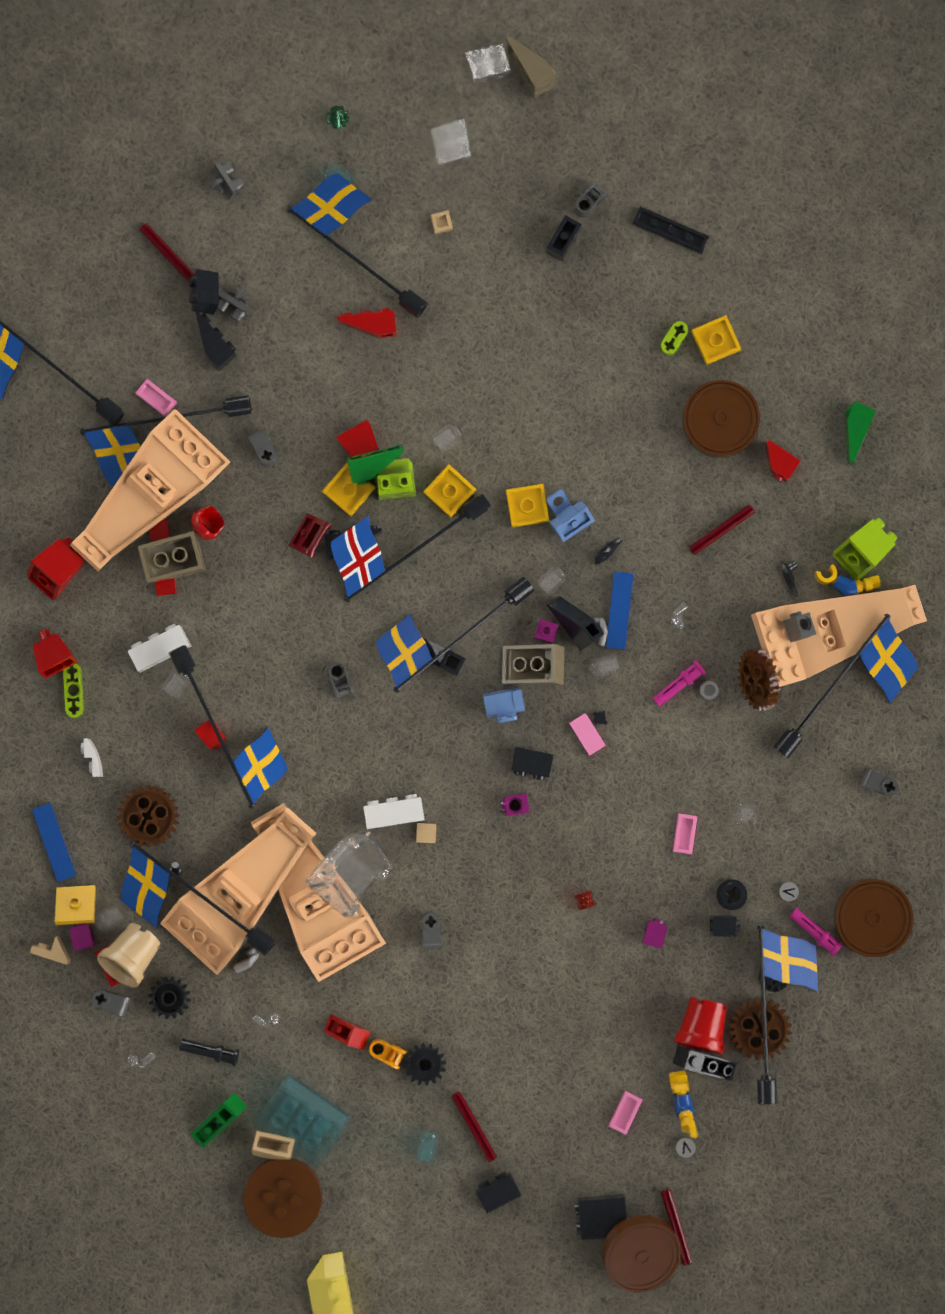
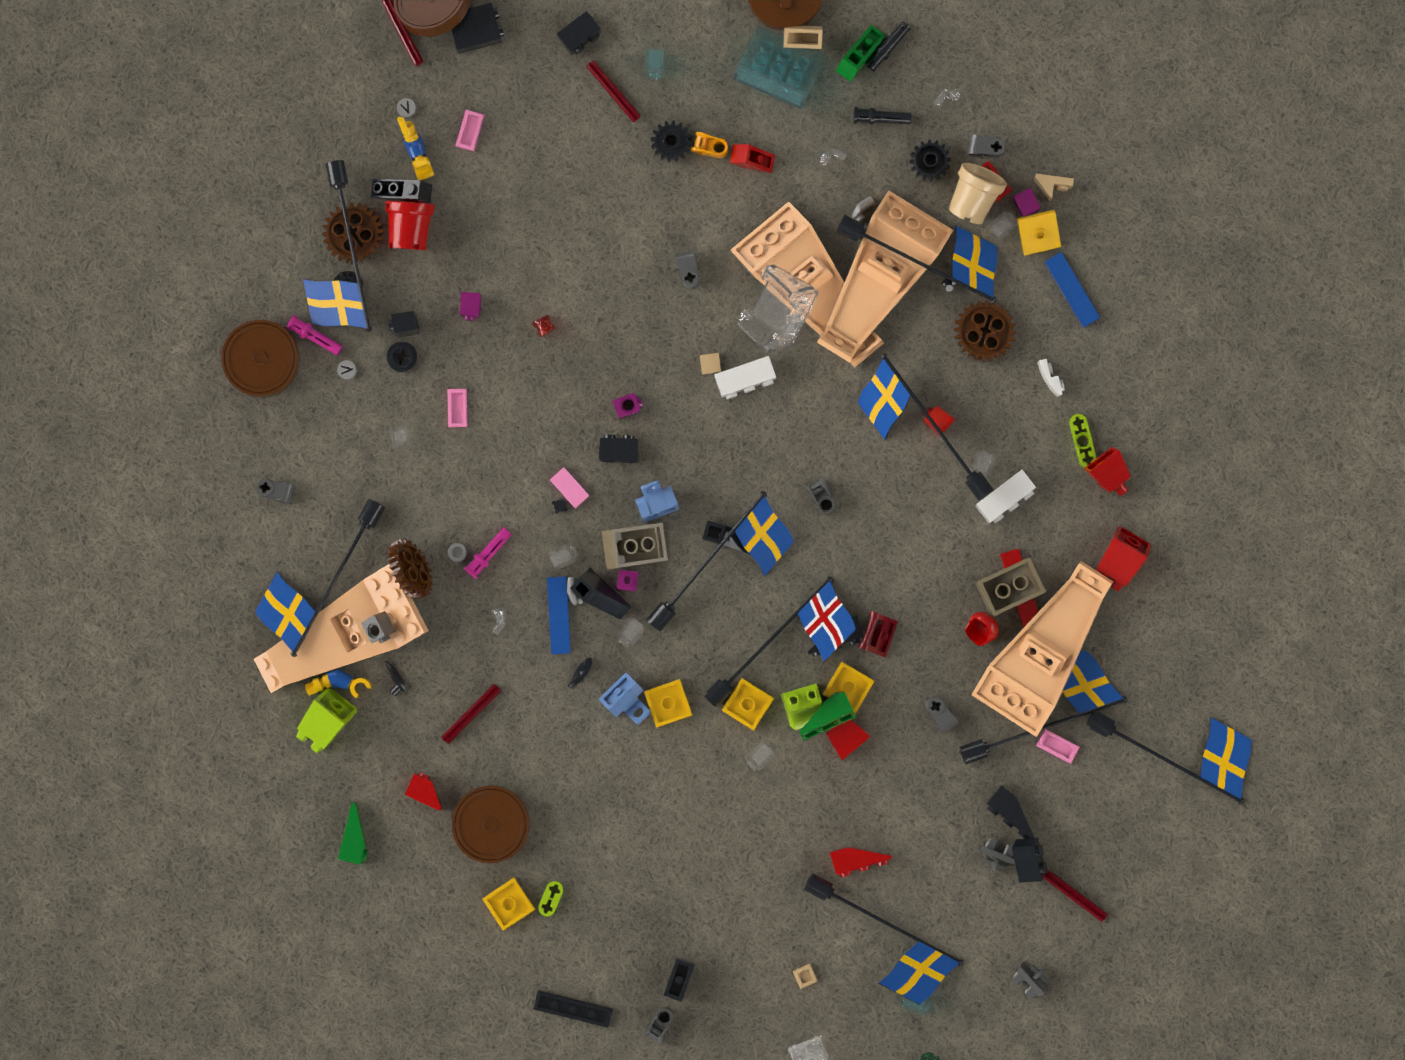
camera: 170 degrees right, 0 degrees up
(196, 1116) = (883, 52): none -> black pin

